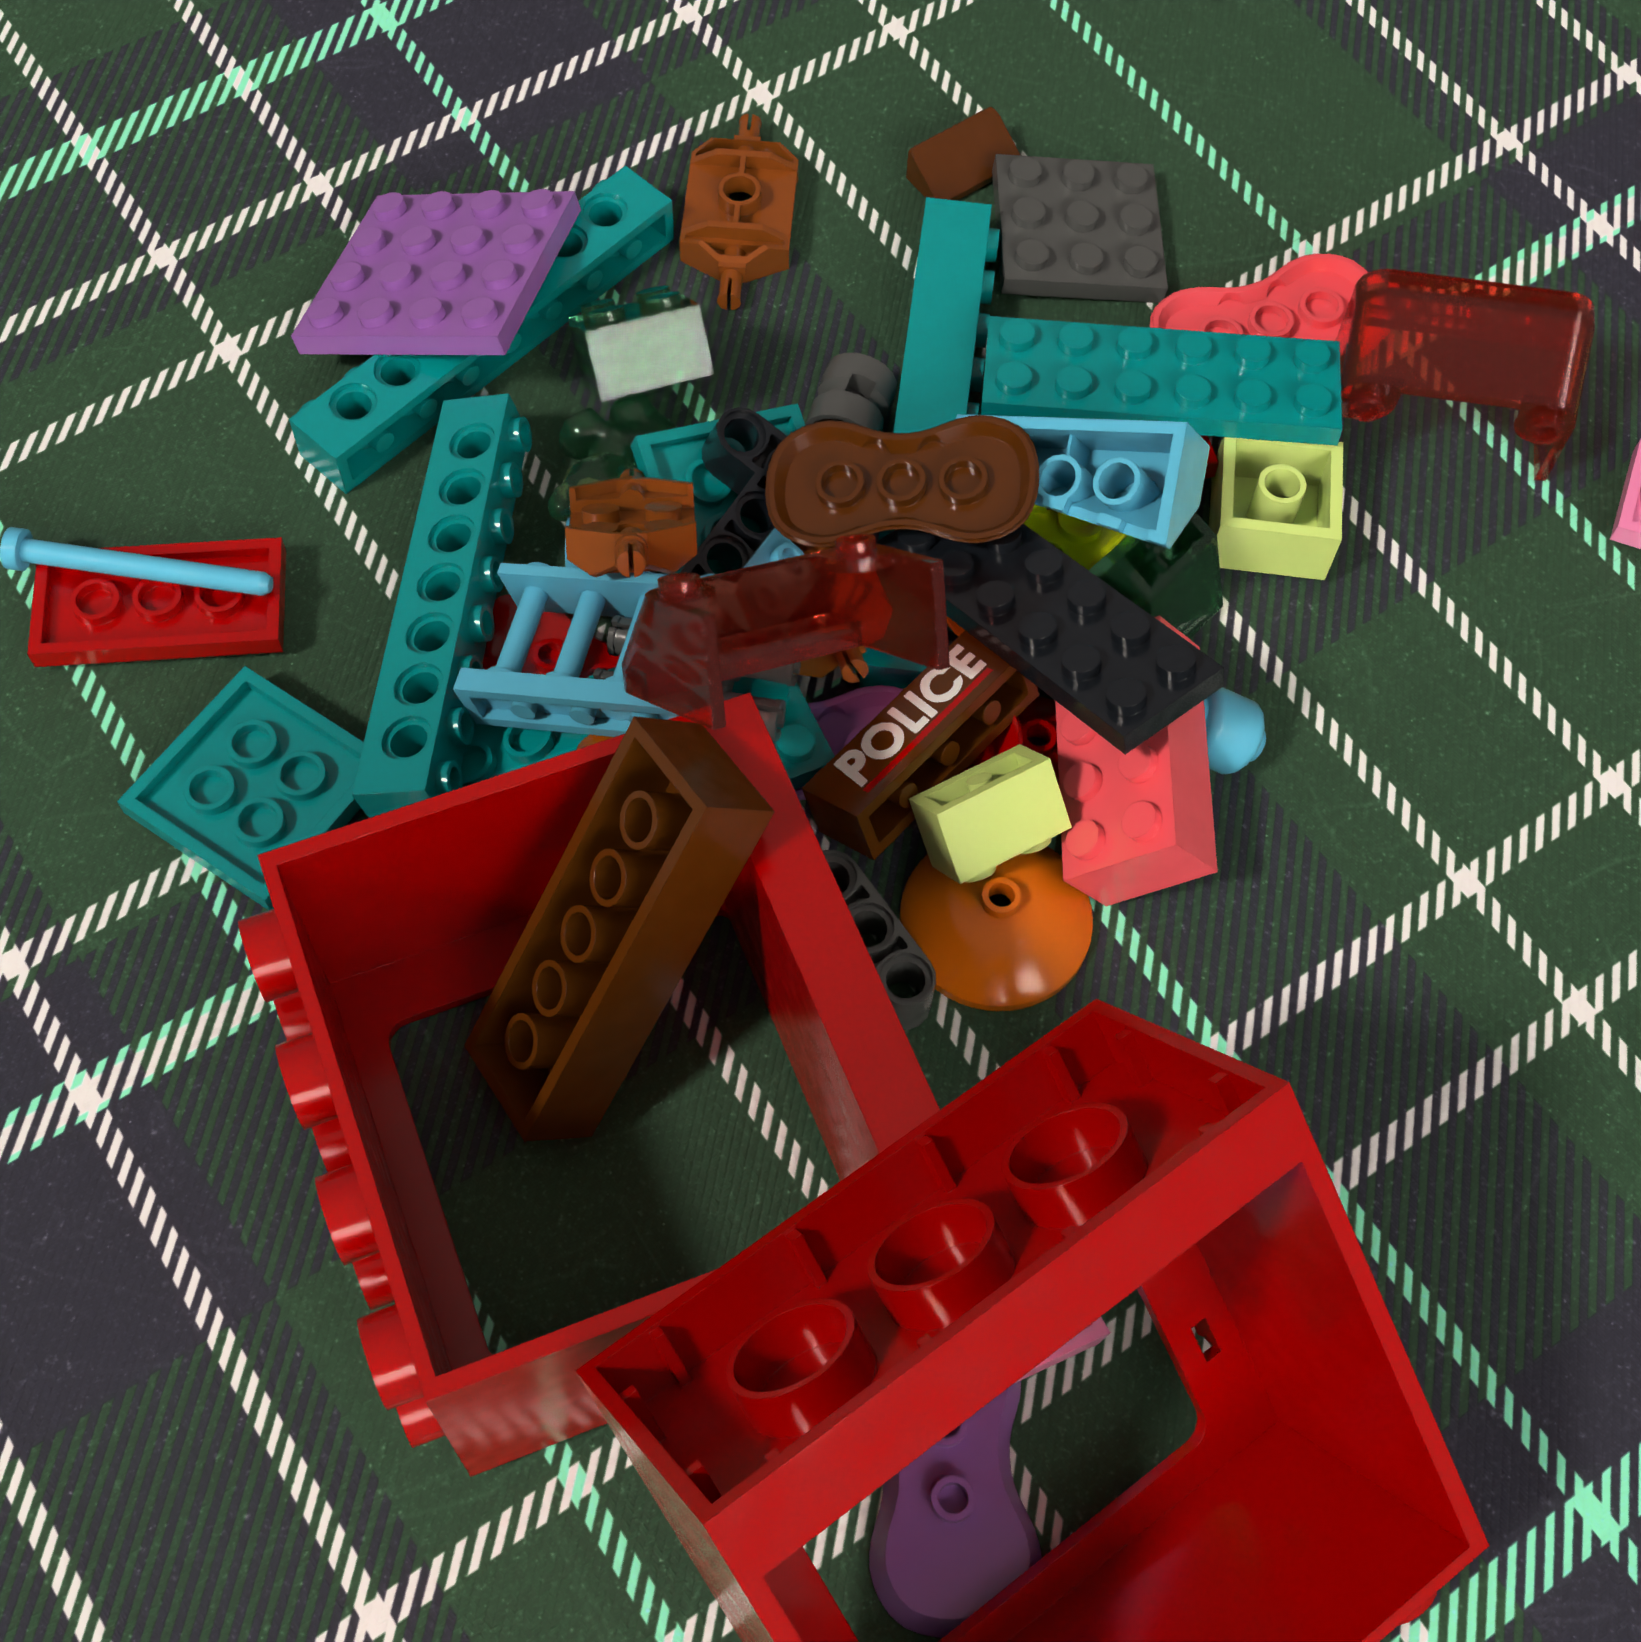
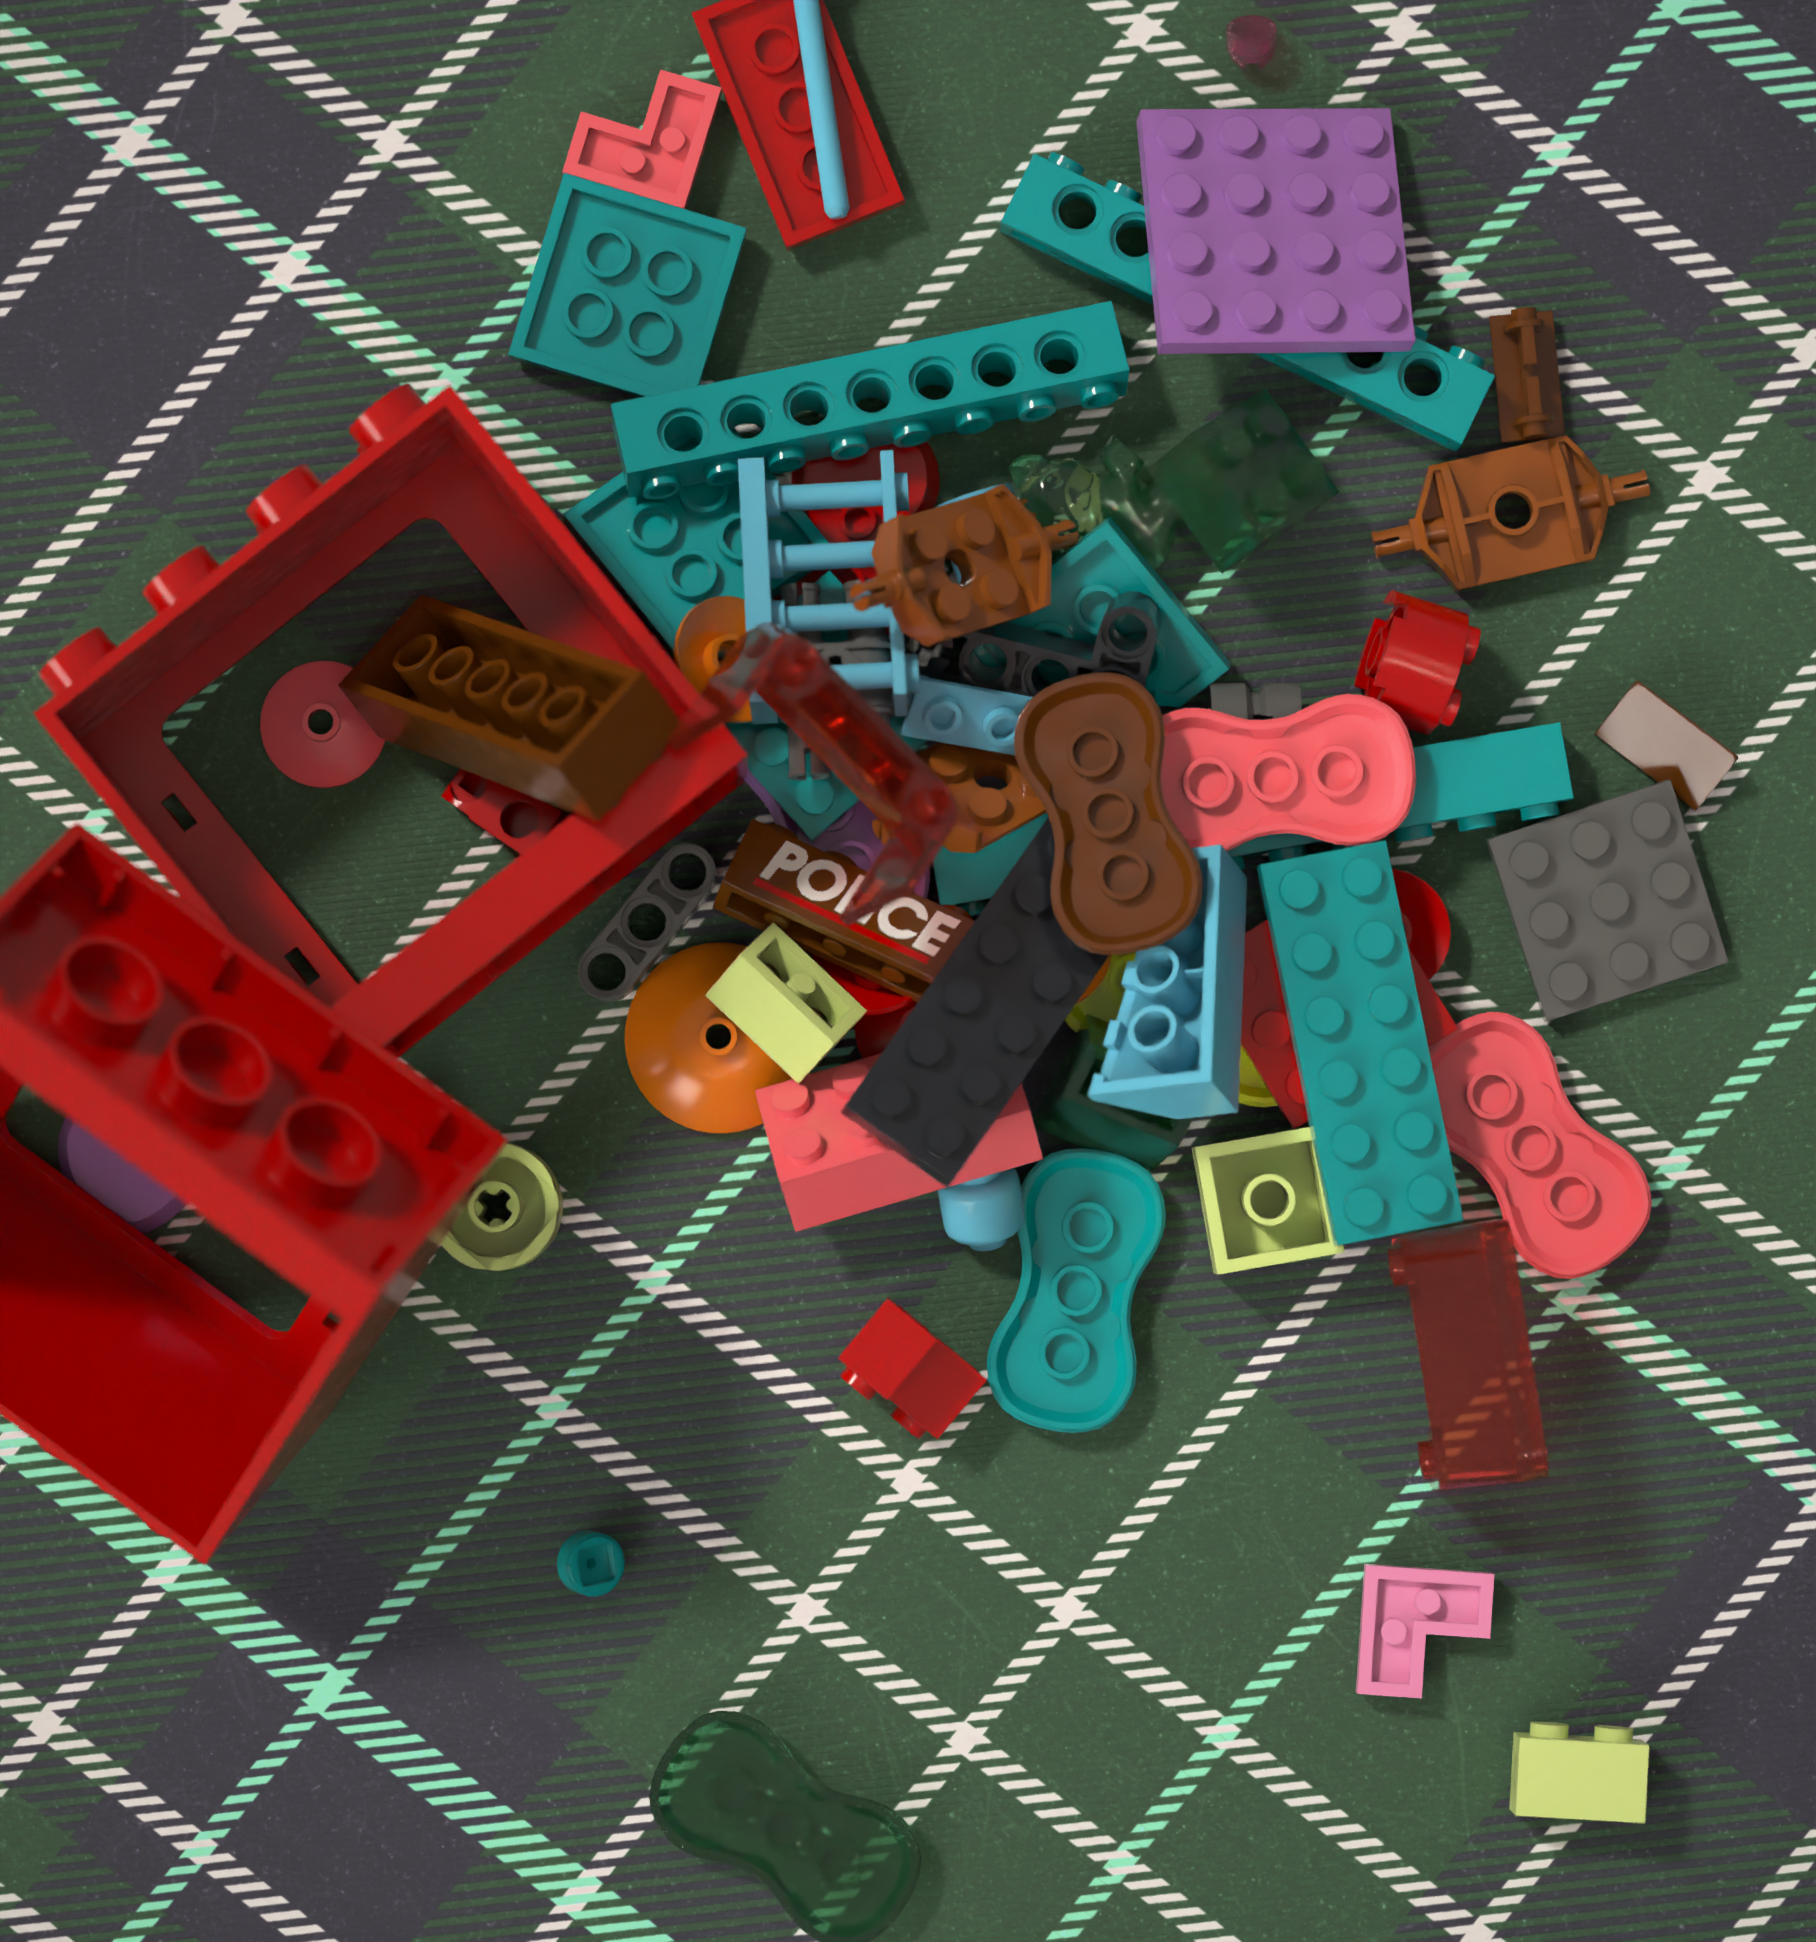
camera: 80 degrees right, 25 degrees up
(138, 722) = (662, 156): none -> coral plate
(277, 269) = (1251, 40): none -> clear pink hinge
(563, 1230) = (309, 757): none -> coral dish
(656, 163) = (1526, 375): none -> reddish brown hinge
(708, 1037) = (502, 811): none -> red leg
(841, 279) = (1417, 660): none -> red brick
(911, 354) = (1320, 773): none -> coral plate
(1361, 828) = (911, 1369): none -> red brick
(1368, 700) = (1067, 1340): none -> teal plate
(1505, 1186) = (590, 1563): none -> teal tile

